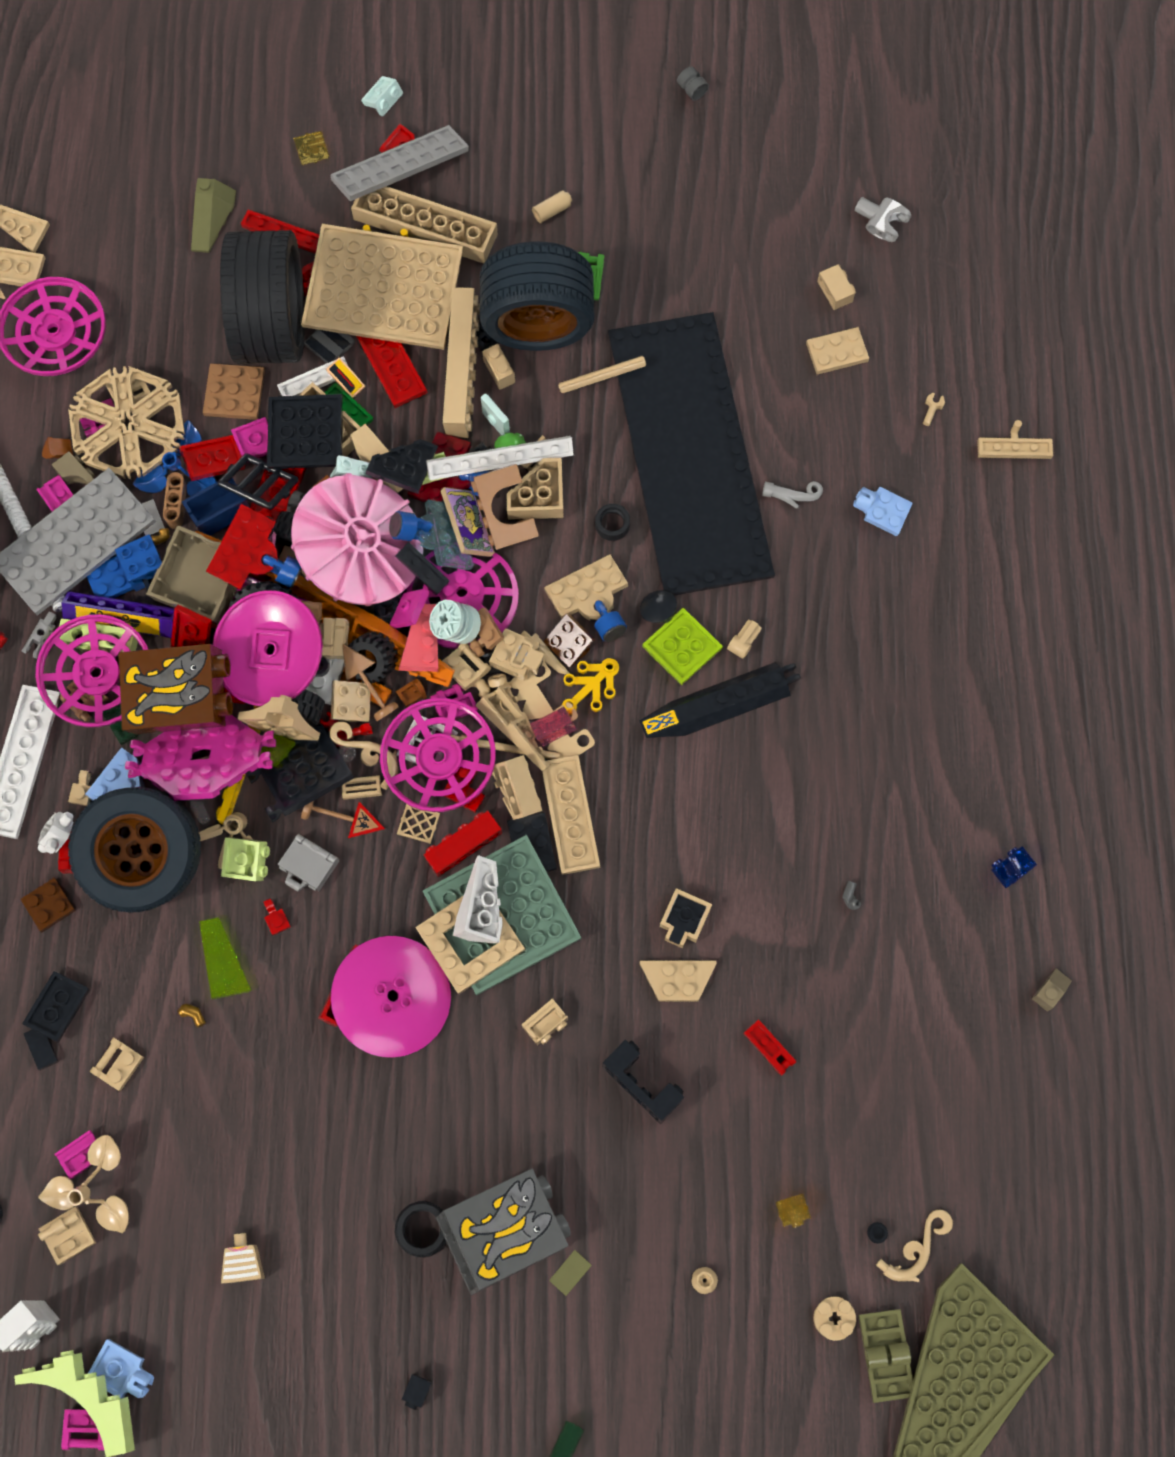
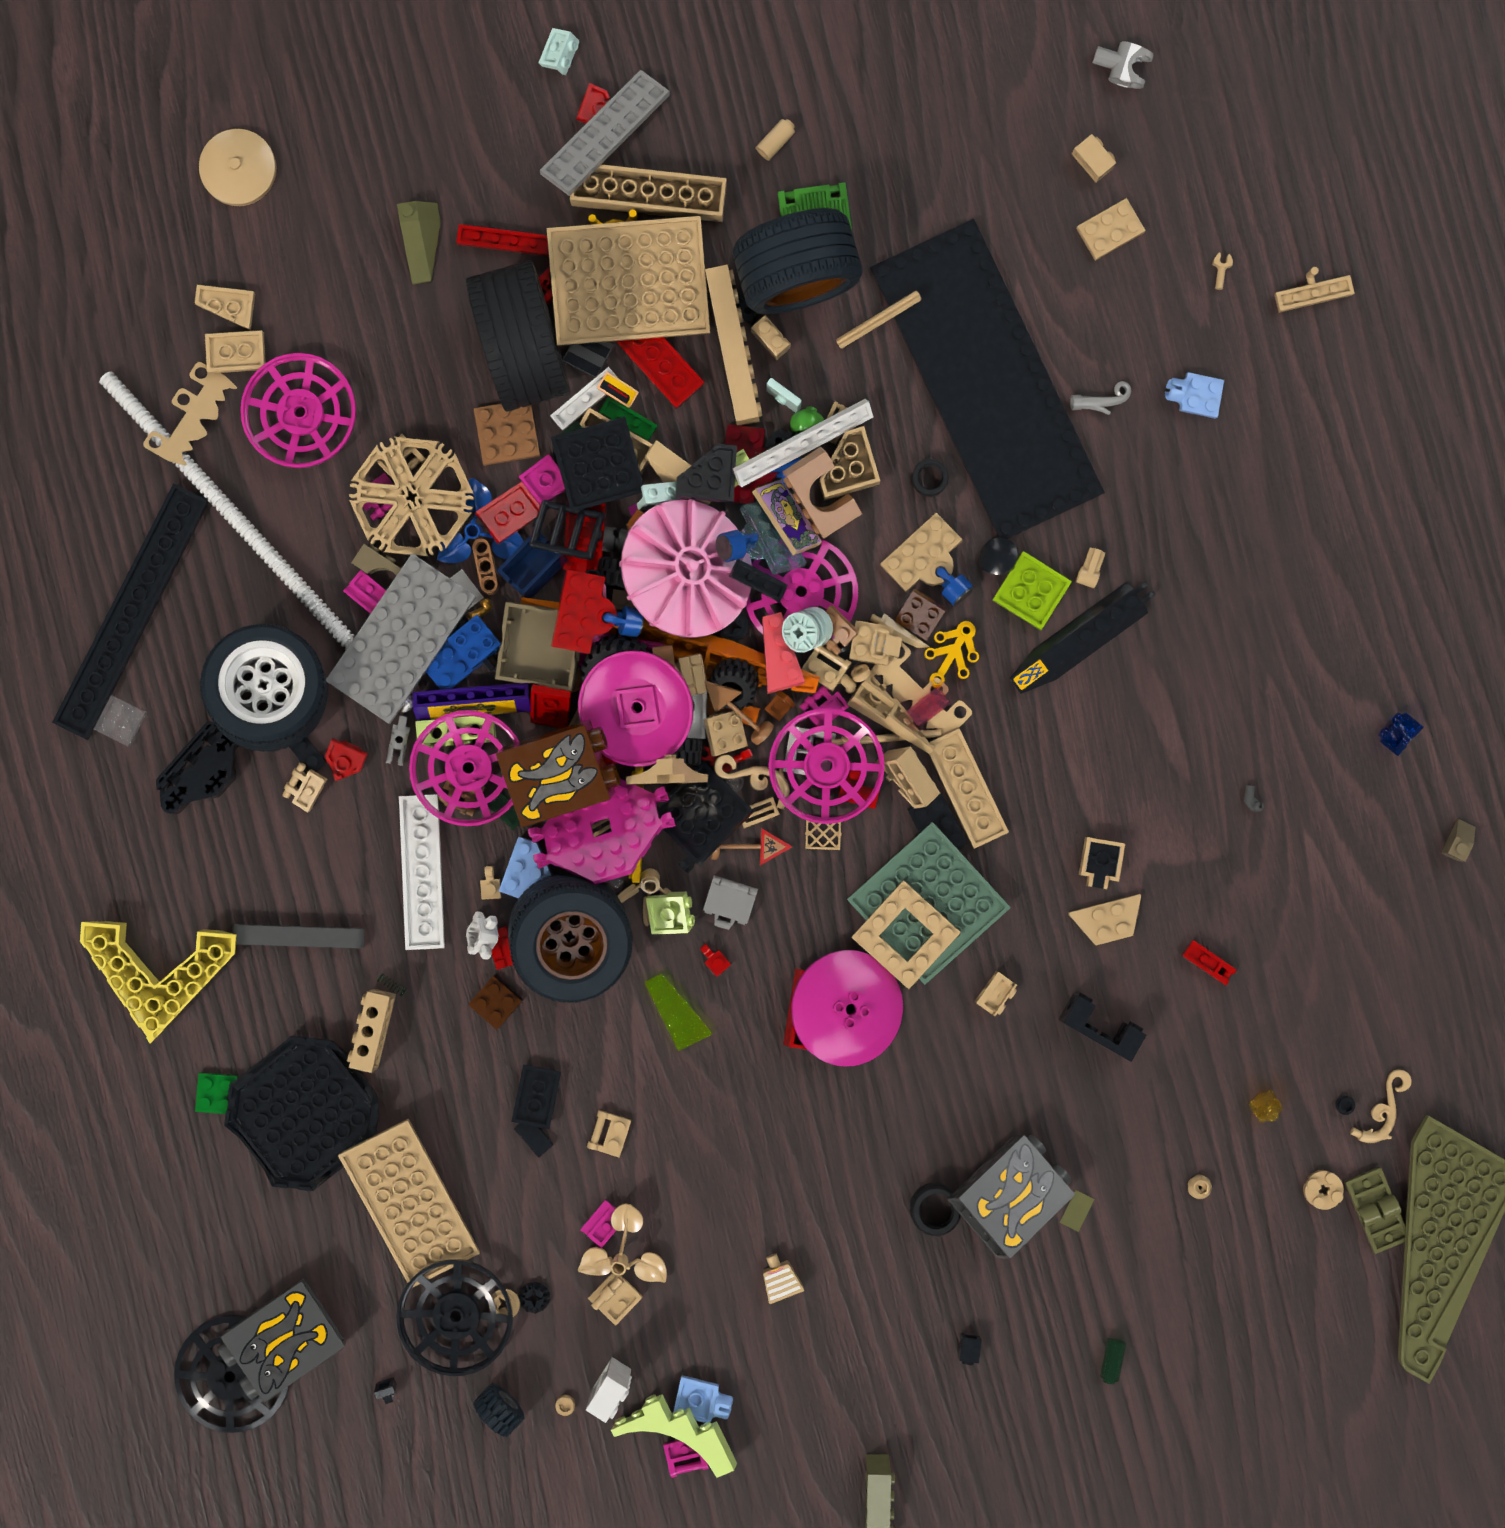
camera: 15 degrees left, 15 degrees up
(56, 448) = (348, 542): dark orange tile -> none
(71, 123) = (237, 167): none -> tan dish
(192, 1011) = (664, 1068): pearl gold arm -> none
(281, 750) = (674, 794): clear neon green piece -> none
(311, 147) = (501, 132): clear yellow piece -> none
(409, 608) = (756, 624): dark pink plate -> none
(462, 843) = (872, 843): red brick -> none
(479, 910) = (909, 905): white wedge -> none

